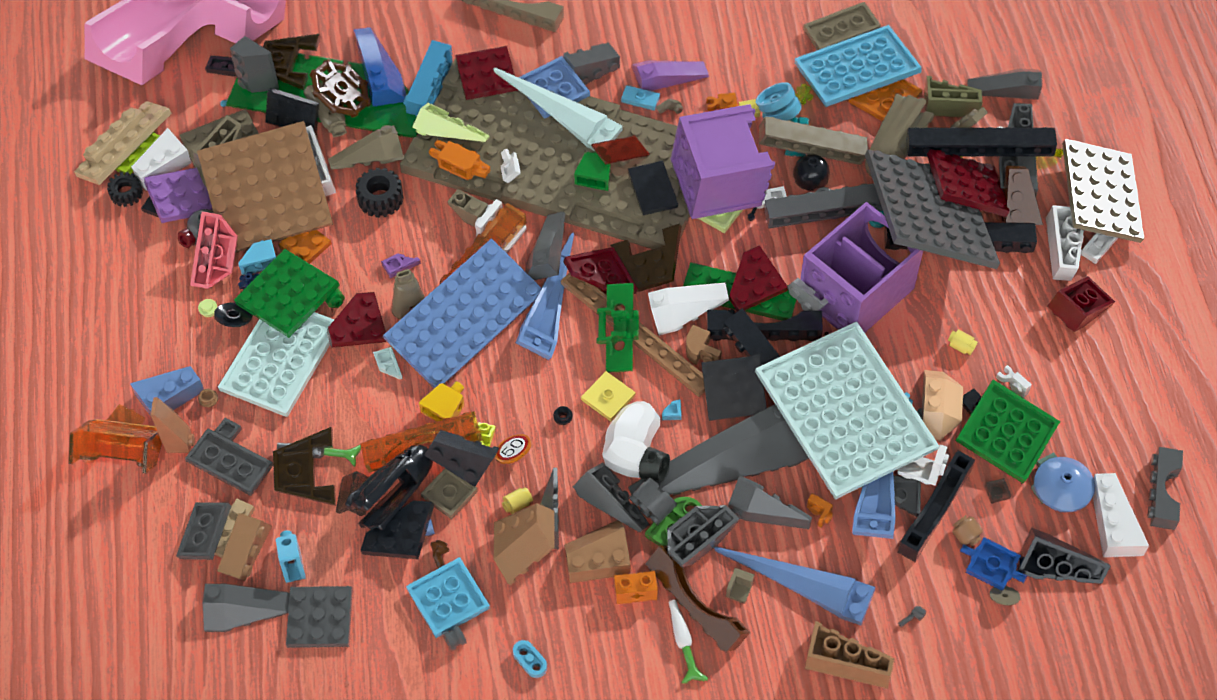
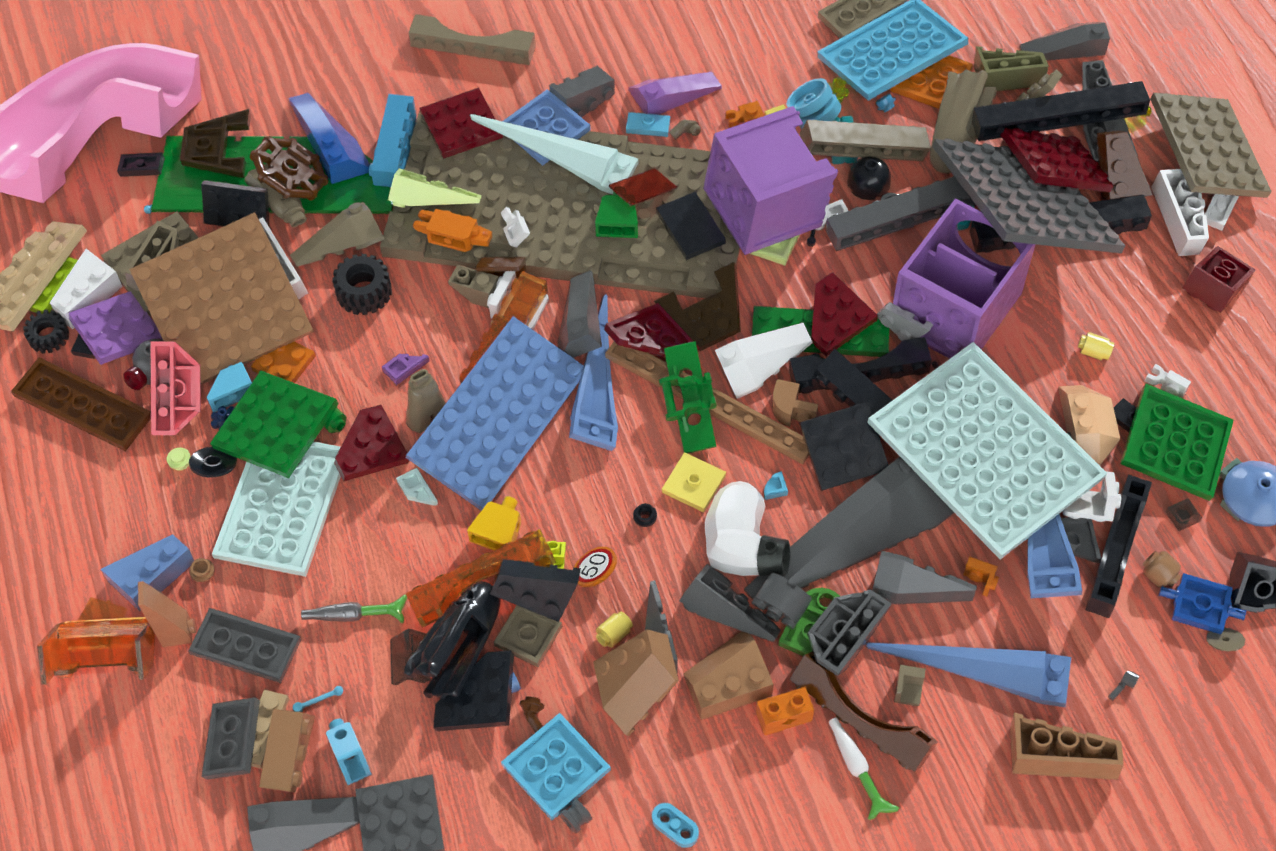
camera: 10 degrees left, 0 degrees up
(141, 251) = (82, 404): none -> reddish brown plate
(228, 429) = (235, 604): dark grey tile -> none
(253, 66) = (178, 158): dark grey slope -> none
(260, 516) = (298, 707): none -> medium azure hinge
(295, 468) = (331, 639): dark brown wing -> none
(490, 195) = (498, 265): none -> reddish brown panel
(841, 111) = (885, 103): none -> dark azure plate

